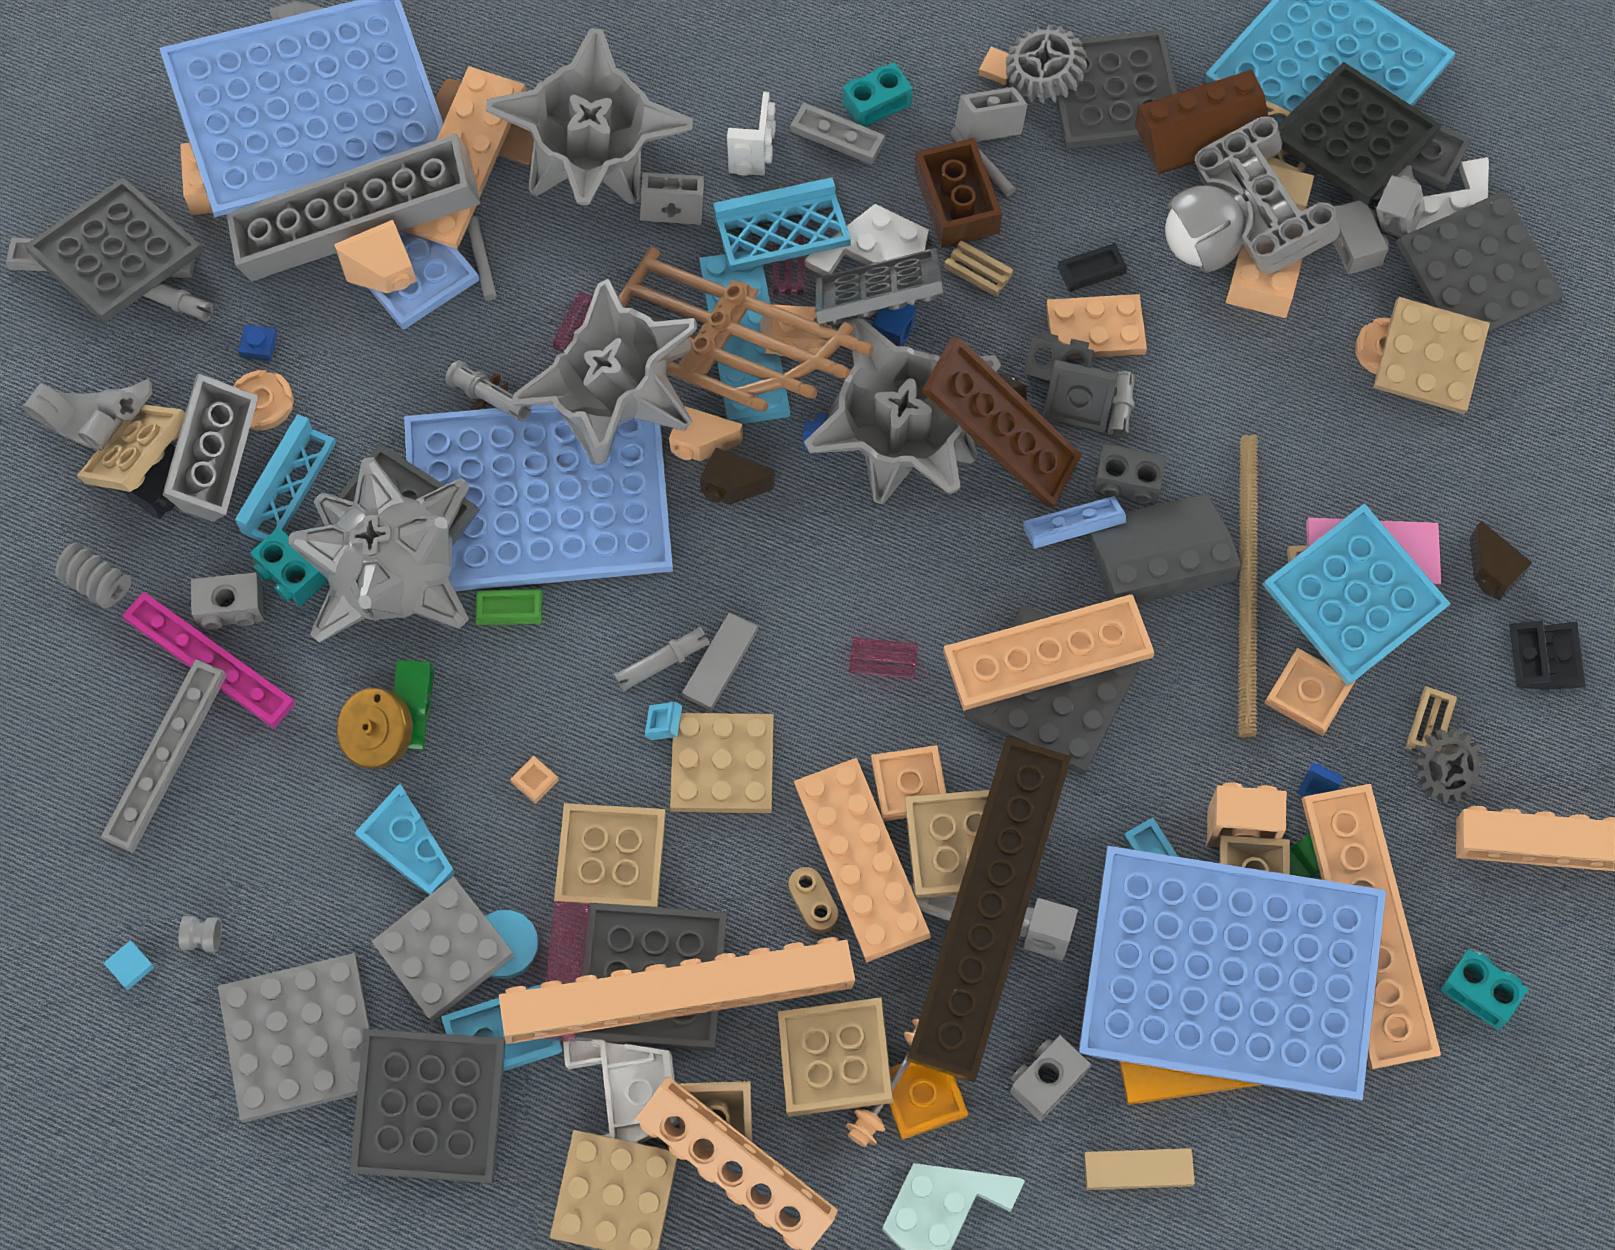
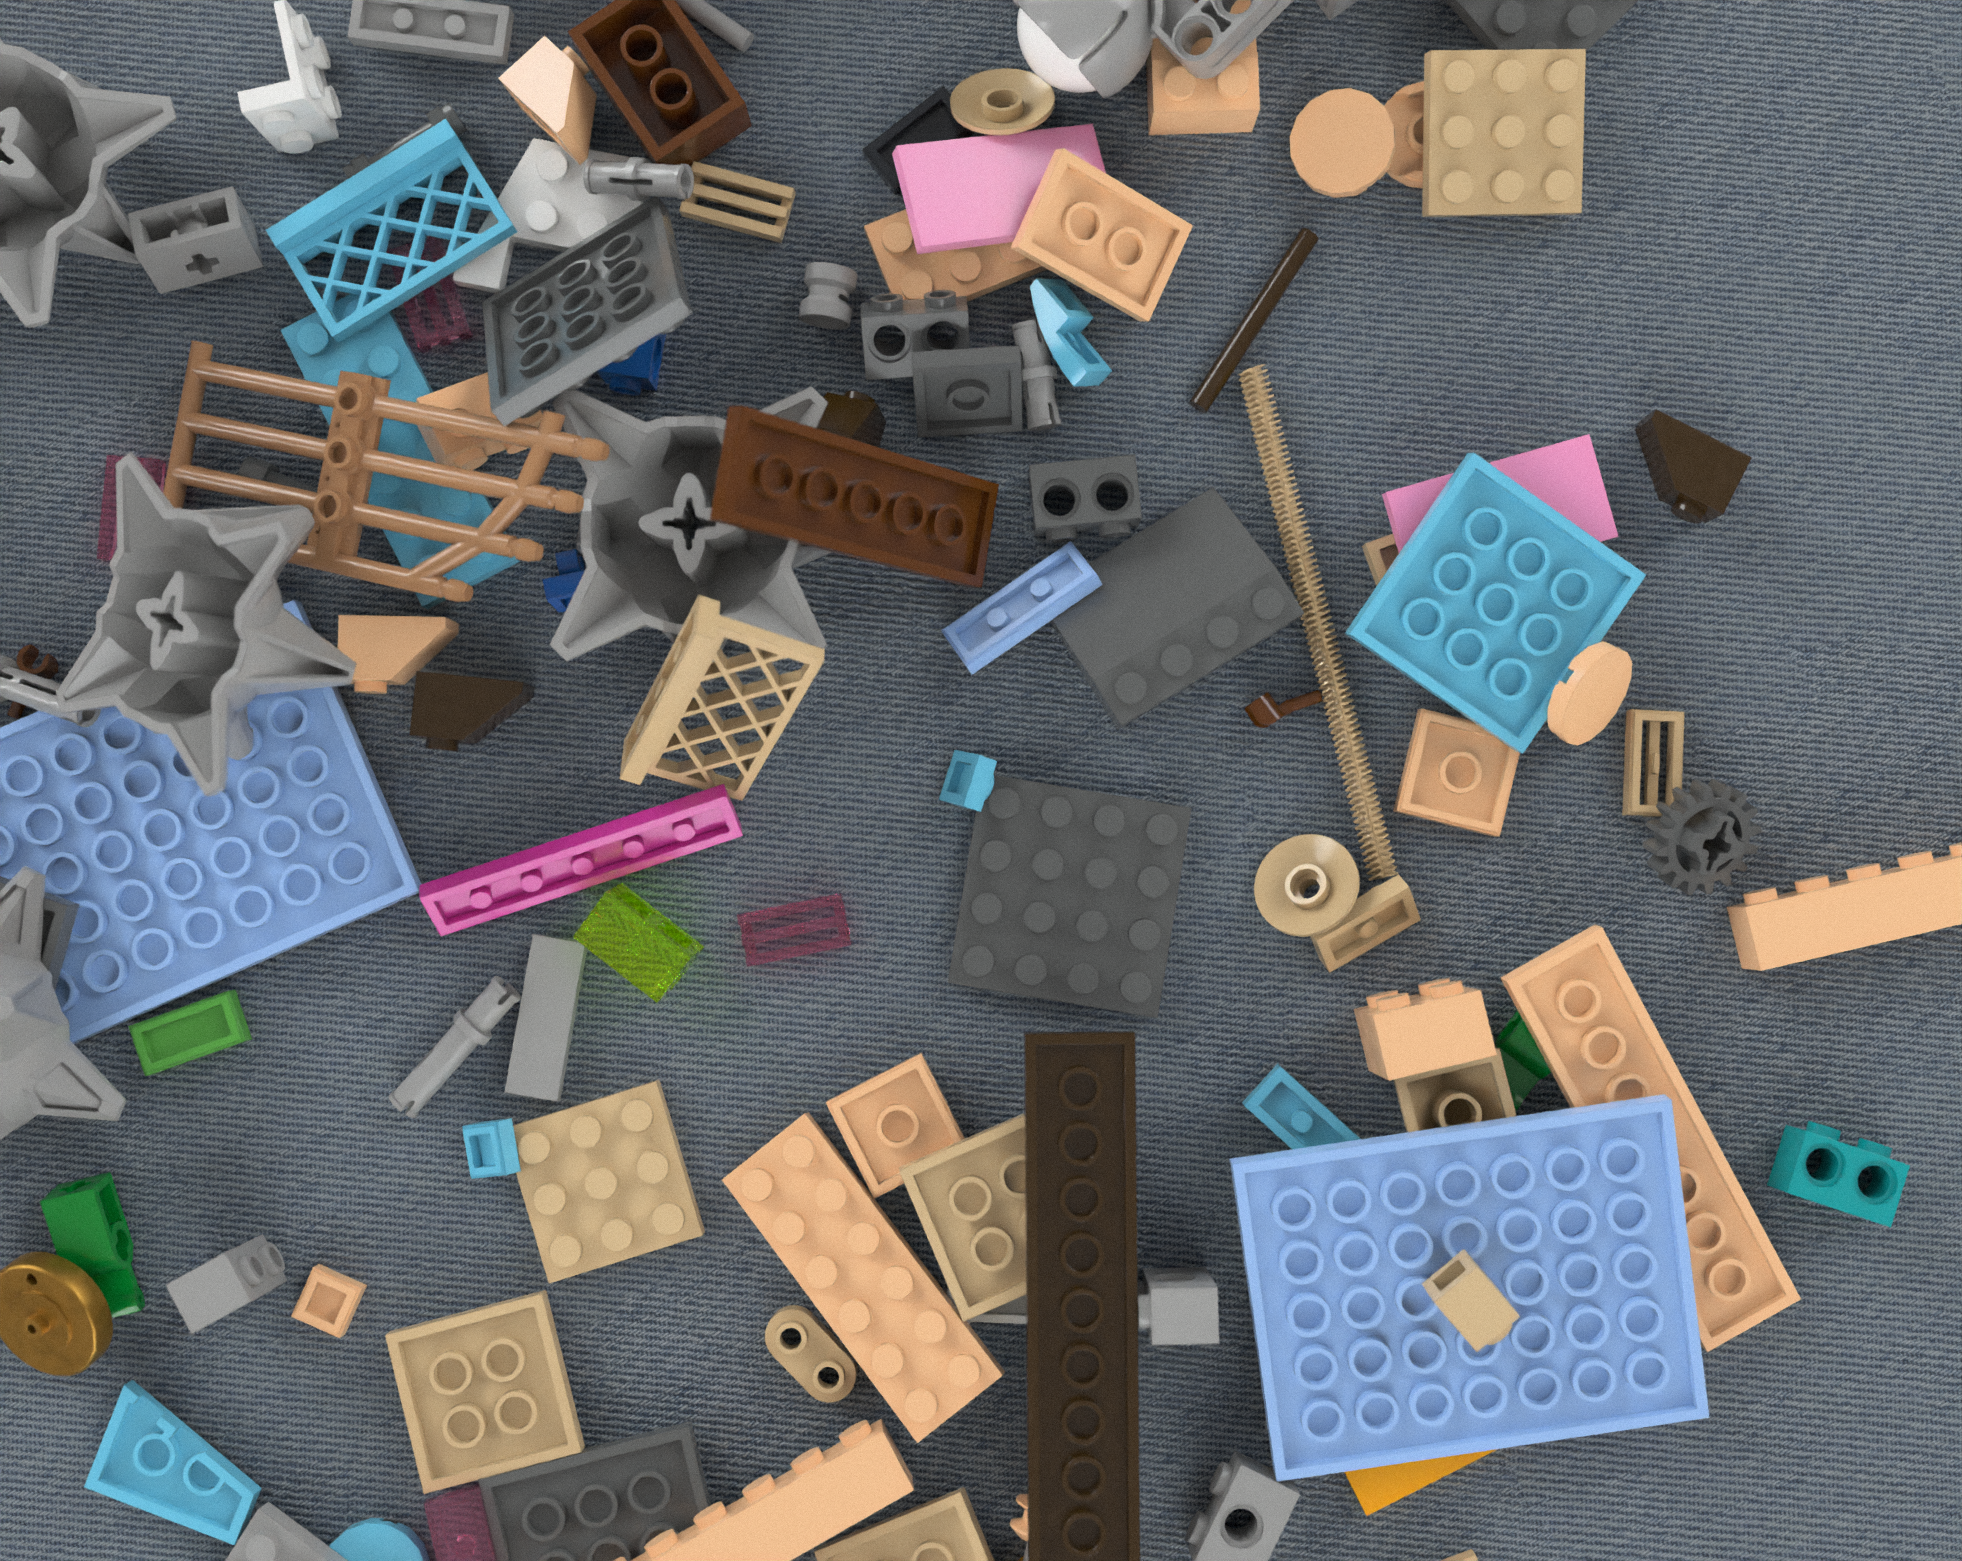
camera: 15 degrees left, 20 degrees up
(488, 739) = (227, 1282): none -> light grey brick
(772, 579) = (581, 860): none -> dark pink plate
(790, 633) = (638, 941): none -> clear neon green hinge
(868, 485) = (680, 681): none -> tan fence
(894, 184) = (555, 95): none -> light nougat slope
(946, 239) = (625, 177): none -> light grey pin
(1014, 604) = (968, 780): none -> medium azure plate
(1016, 325) = (828, 295): none -> light grey wheel
(1048, 652) = (1046, 854): light nougat plate -> none
(1134, 300) = (980, 185): none -> bright pink tile
(1145, 382) = (1061, 323): none -> medium azure slope
(1146, 259) = (1002, 101): none -> tan dish
(1182, 339) = (1101, 235): none -> light nougat plate
(1199, 721) = (1295, 867): none -> tan dish
(1202, 622) = (1265, 710): none -> reddish brown hand
(1227, 754) = (1372, 920): none -> tan plate
(1231, 967) = (1471, 1301): none -> tan brick
(1257, 413) = (1254, 320): none -> dark brown bar
(1319, 781) = (1516, 927): blue tile -> none
(1336, 335) = (1342, 142): none -> light nougat tile
(1400, 663) = (1591, 694): none -> light nougat tile
(1547, 655) = (1802, 595): black slope -> none

